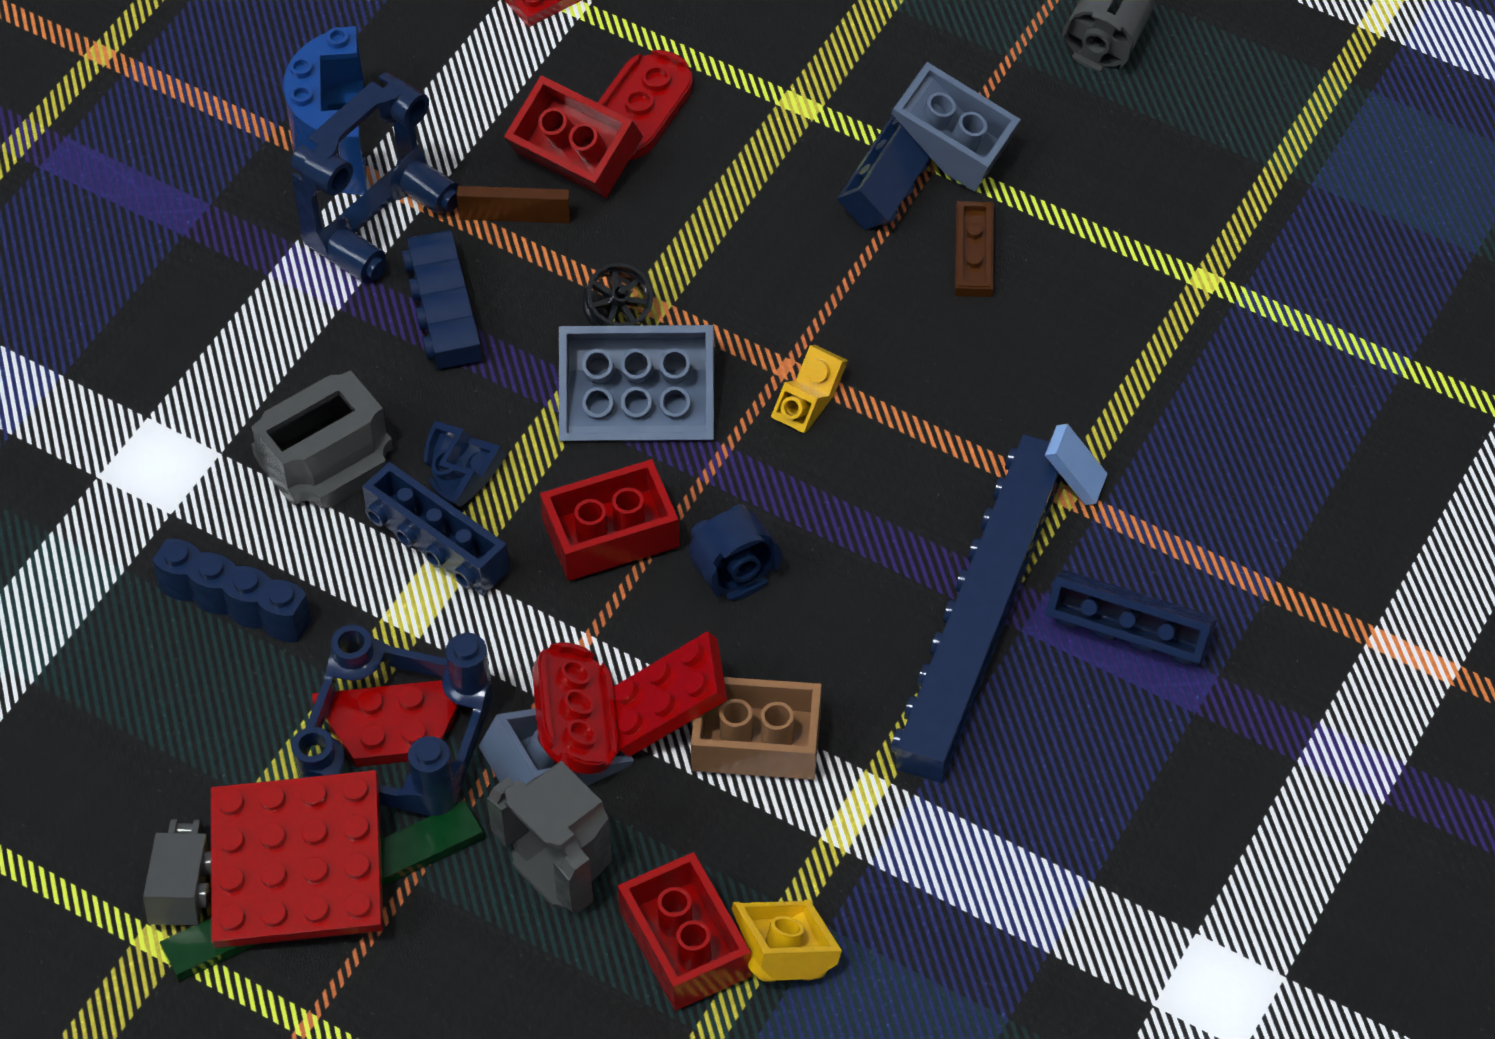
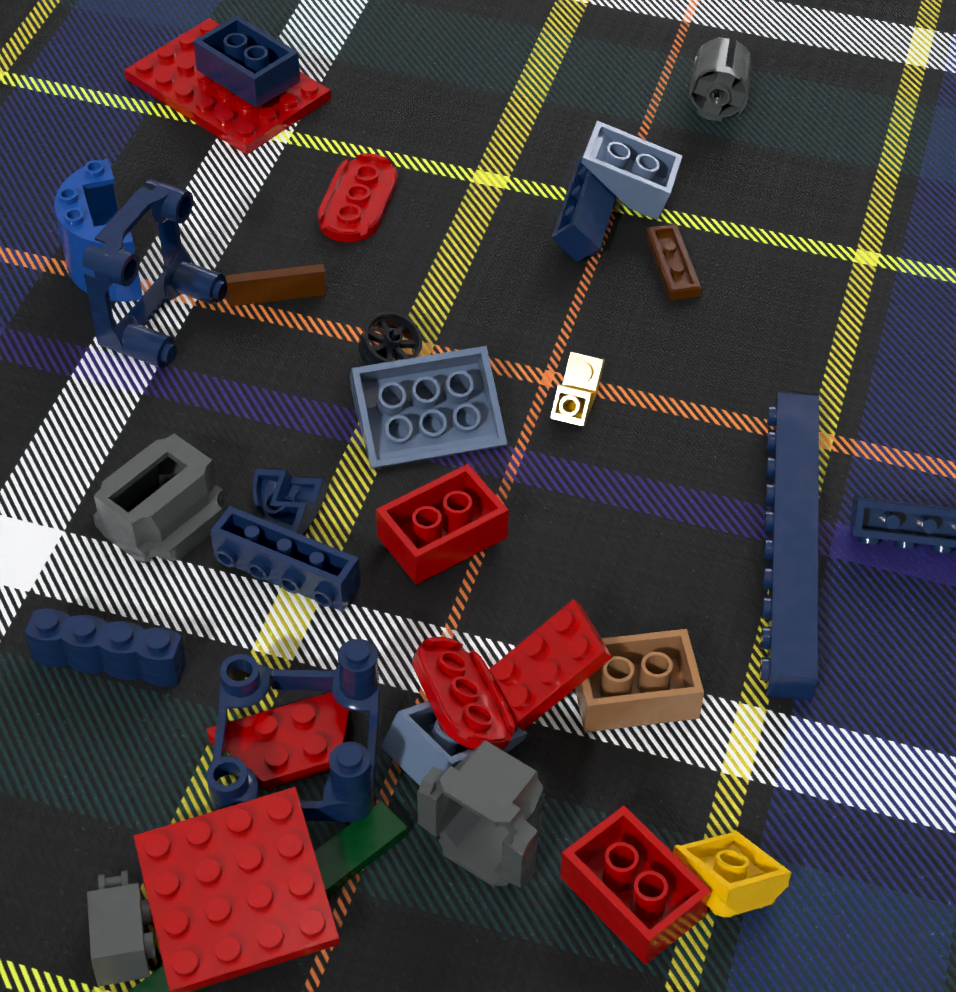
camera: 15 degrees left, 5 degrees down
(443, 300) = (235, 369): dark blue brick -> none
(573, 136) = (314, 222): red brick -> none
(734, 552) = (563, 531): dark blue brick -> none
(1076, 464) = (830, 408): light blue tile -> none

